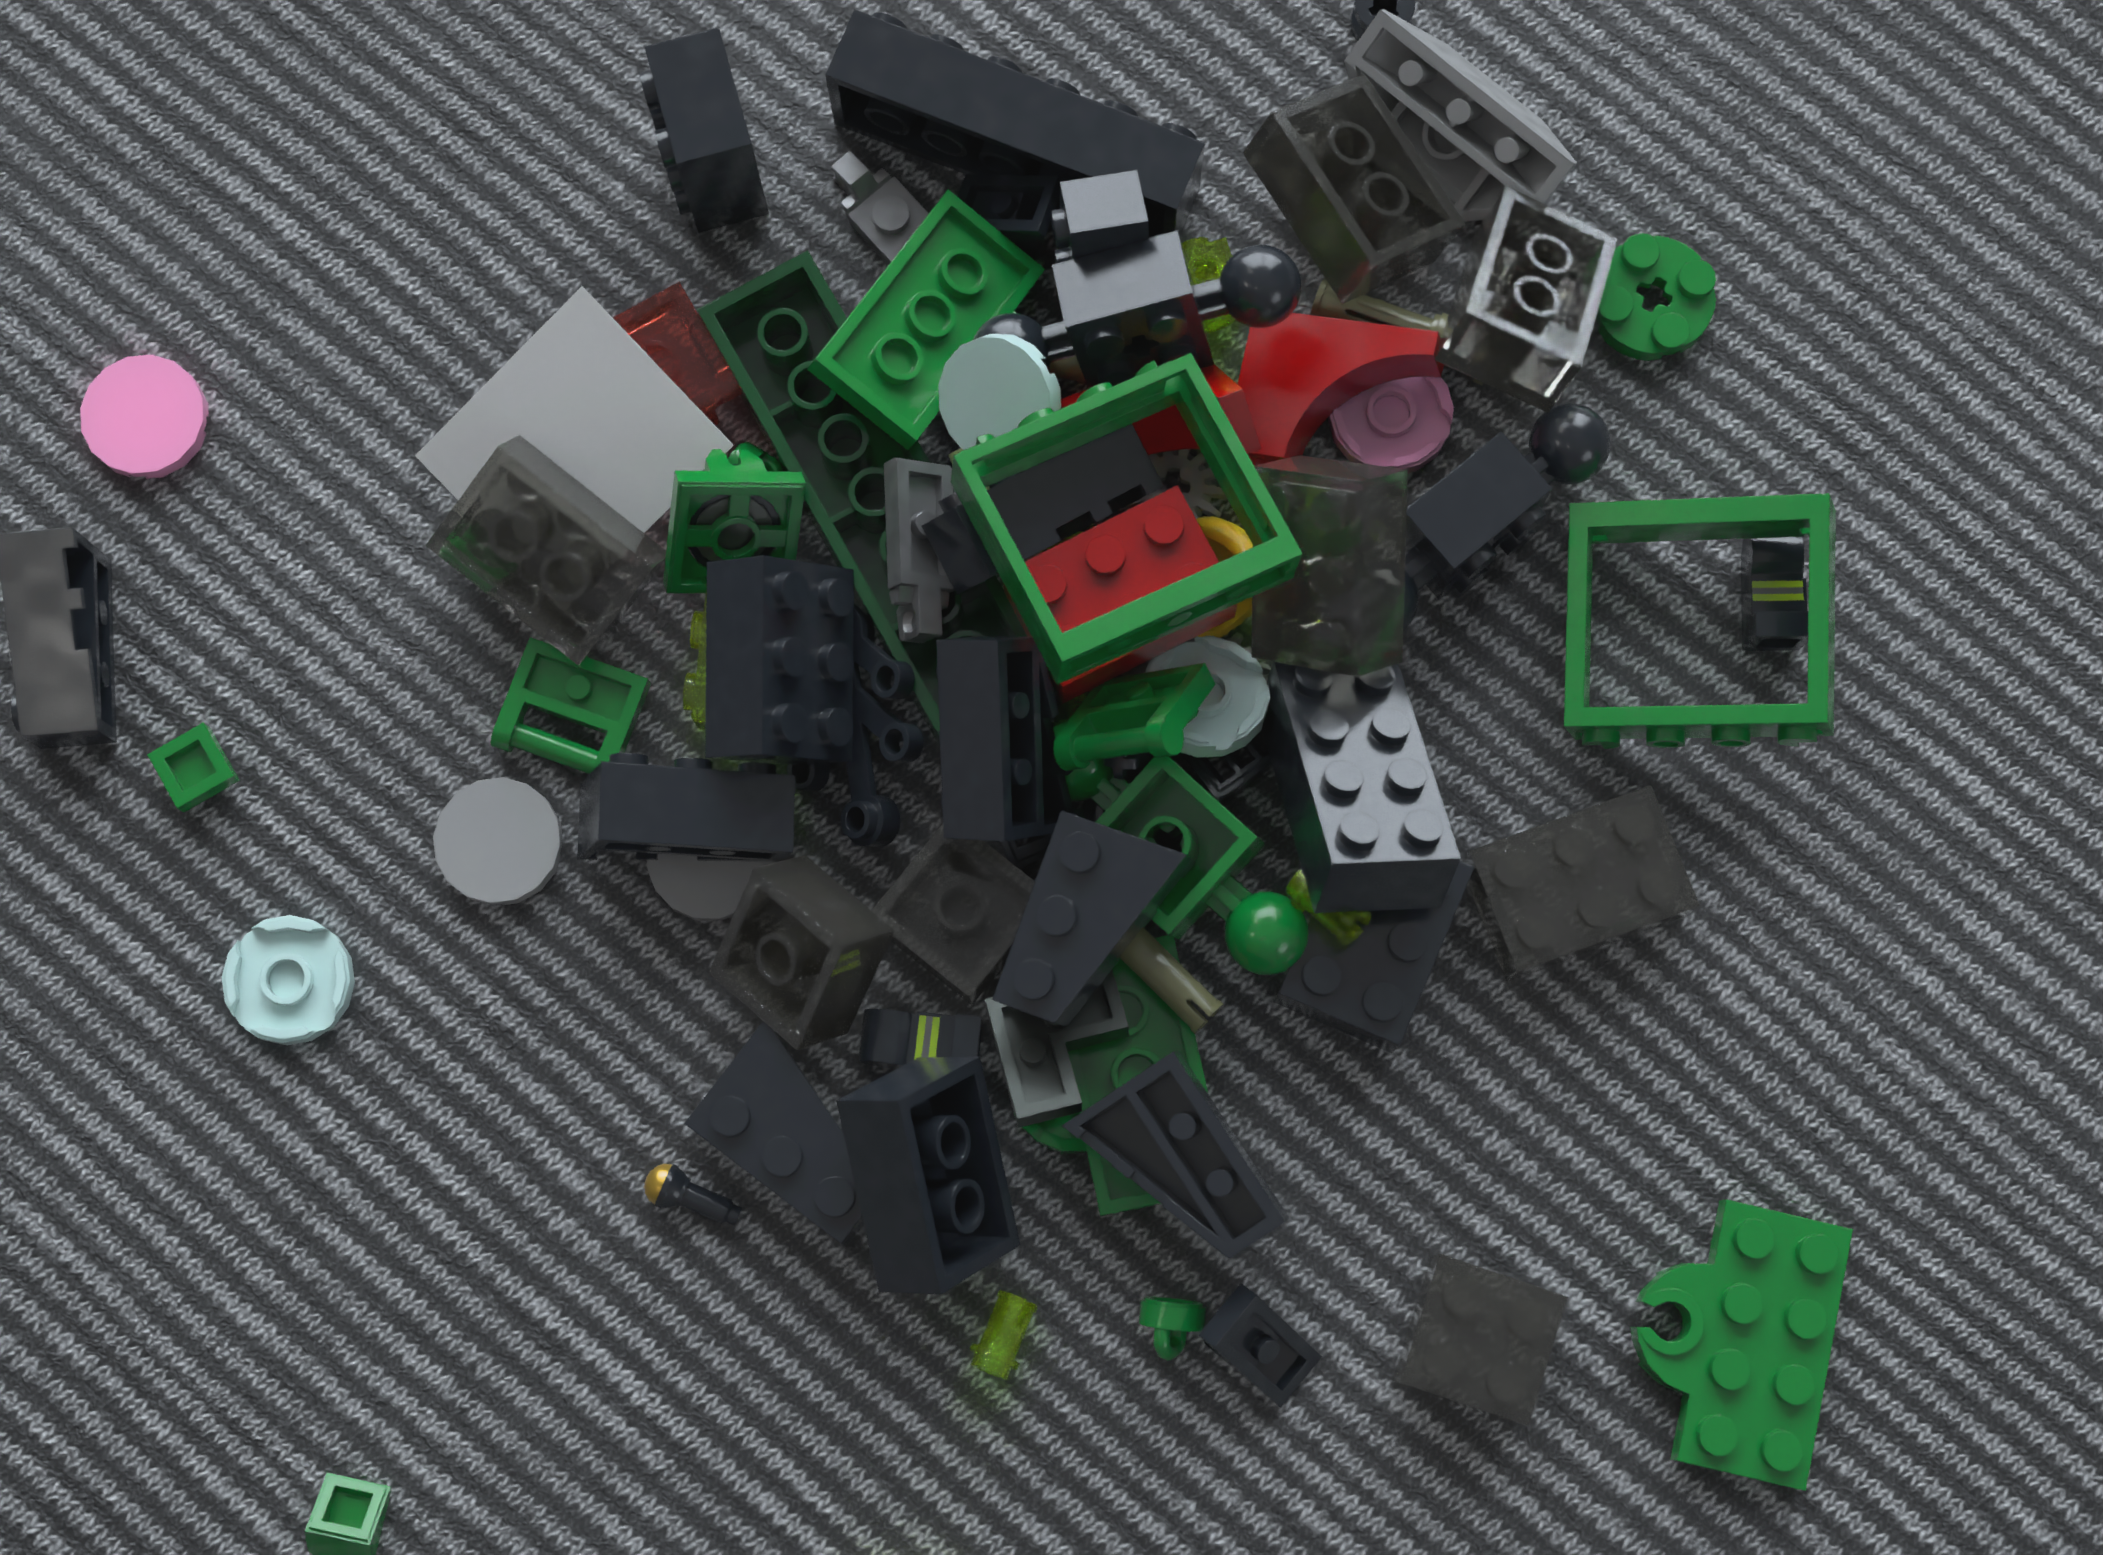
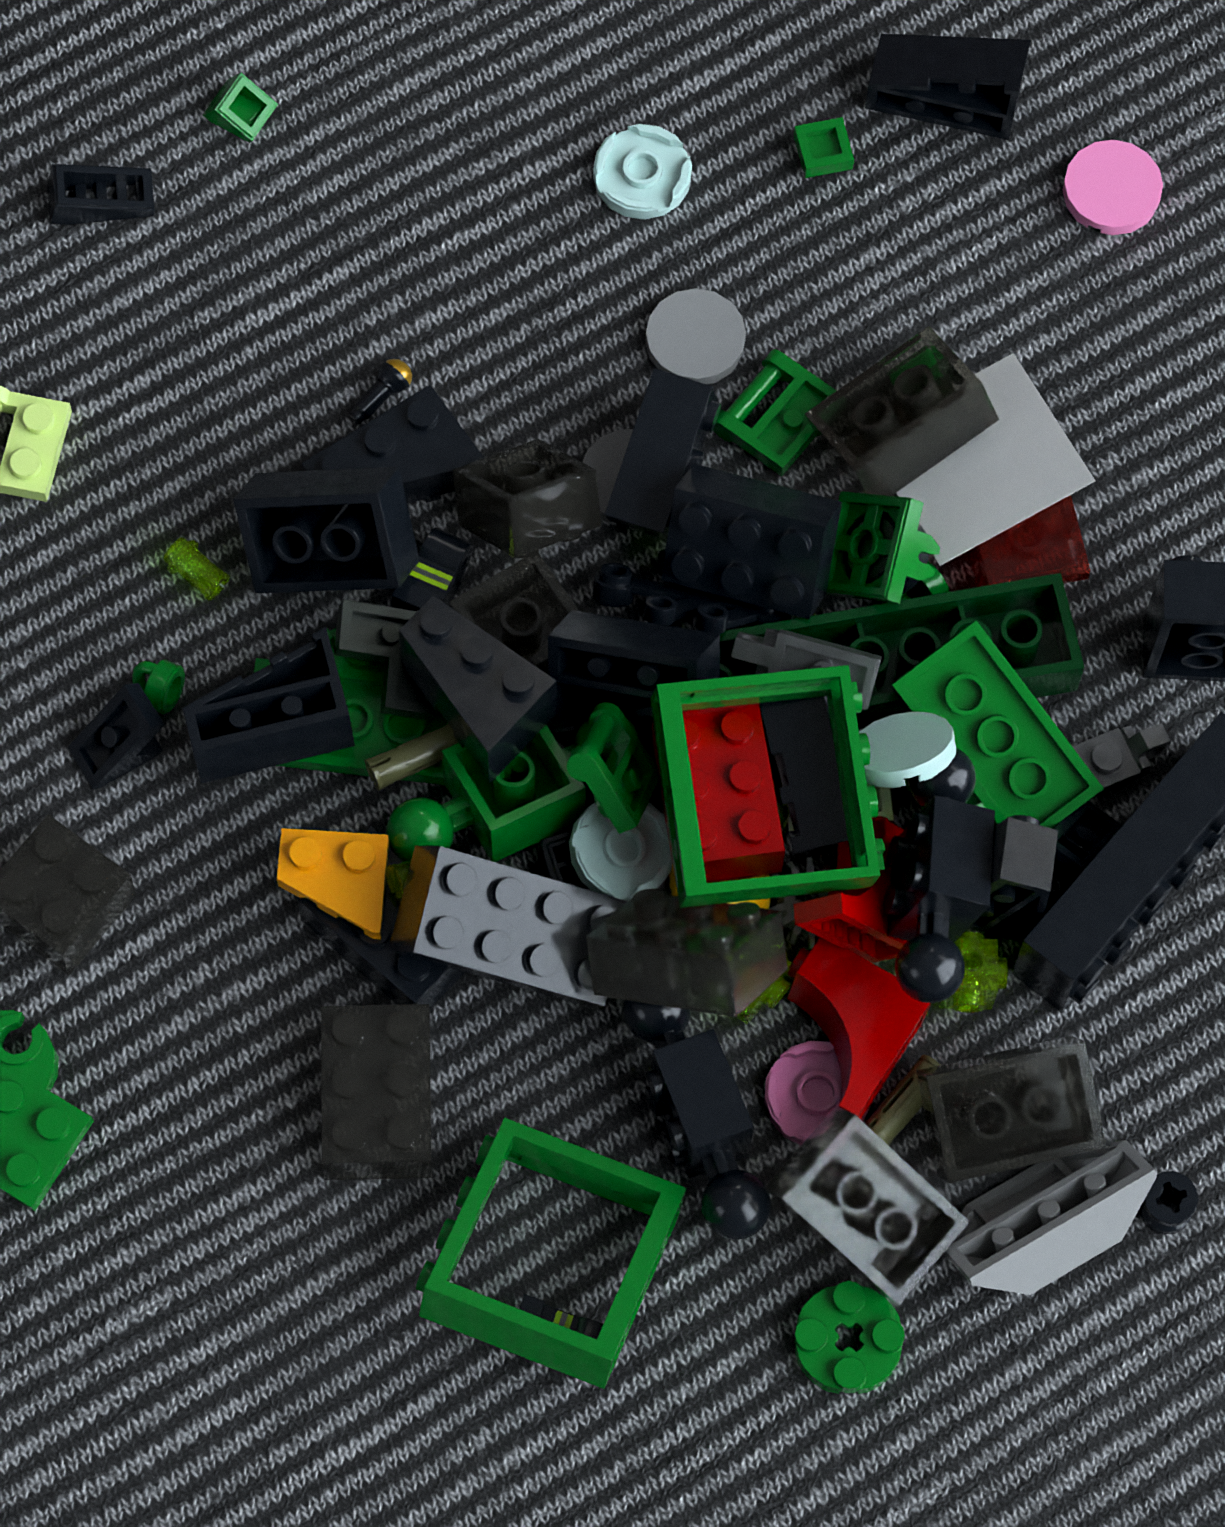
camera: 105 degrees right, 10 degrees down
(1363, 1003) = (337, 872): none -> light orange wing

